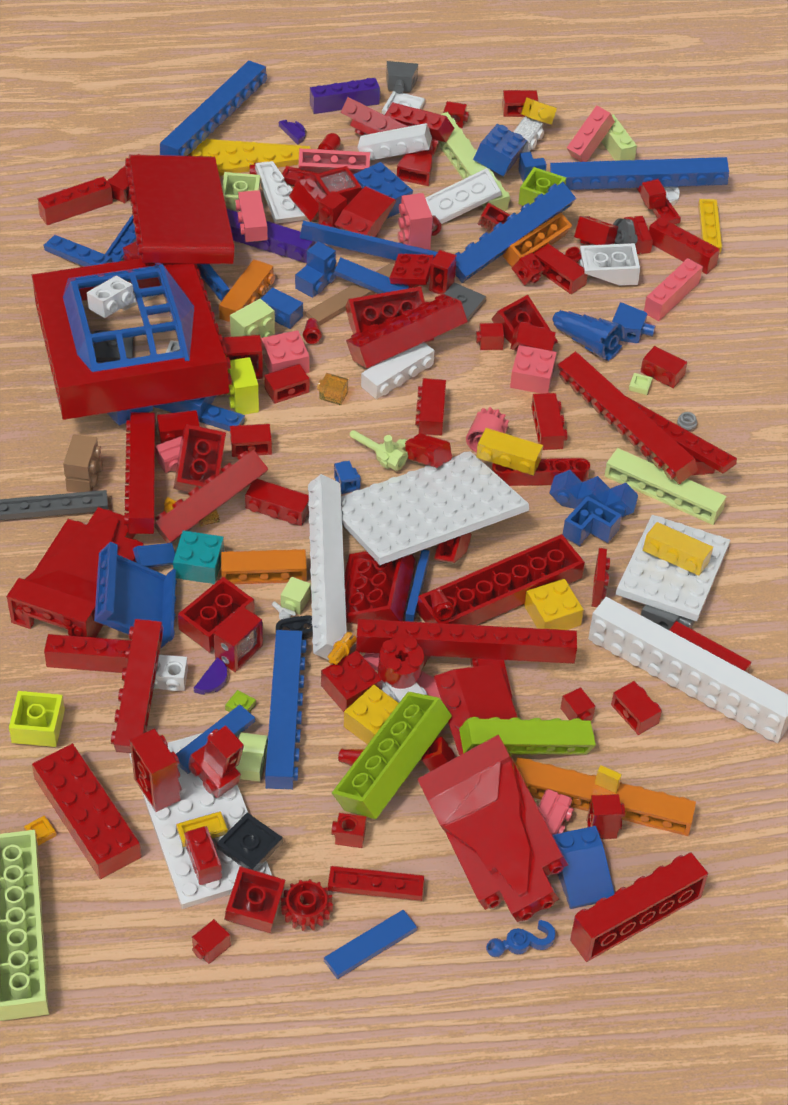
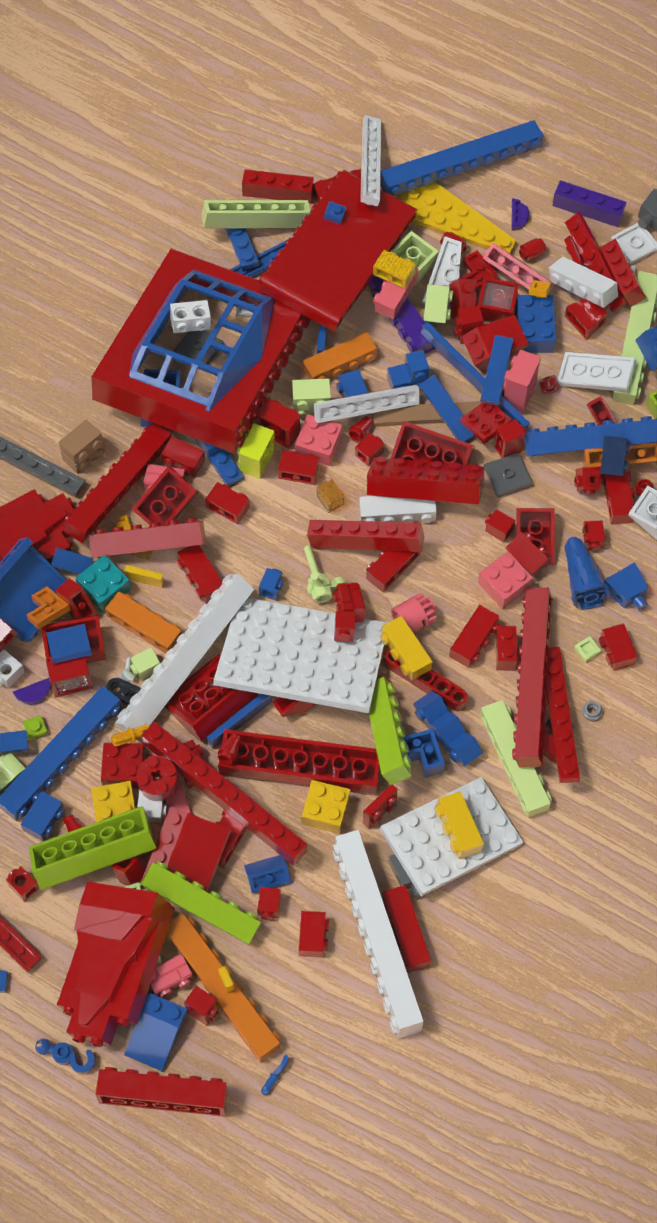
camera: 40 degrees right, 15 degrees up
(78, 223) = (254, 213): none -> yellowish green brick
(145, 141) = (371, 160): none -> white plate
(154, 180) = (334, 212): none -> blue plate
(171, 595) = (49, 609): none -> orange plate
(189, 578) = (77, 599): none -> red brick
(221, 607) = (68, 643): none -> blue tile
(233, 531) = (144, 576): none -> yellow tile
(243, 195) = (394, 269): none -> yellow brick
(294, 207) = (437, 303): none -> yellowish green brick
(304, 305) = (366, 403): none -> white plate
(317, 766) = (42, 816): none -> blue brick
(333, 340) = (369, 448): none -> red brick
(368, 160) = (539, 288): none -> light orange plate
(389, 227) = (496, 370): none -> blue tile
(395, 394) = (366, 535): none -> red brick
(444, 464) = (344, 626): none -> red brick
(538, 235) = (613, 455): none -> dark blue brick
(553, 686) = (267, 873): none -> blue panel
(563, 517) = (389, 733): none -> lime brick
(568, 301) = (594, 534): none -> red brick
(581, 414) = (506, 648): none -> red brick
(711, 835) = (273, 1076): none -> blue piece

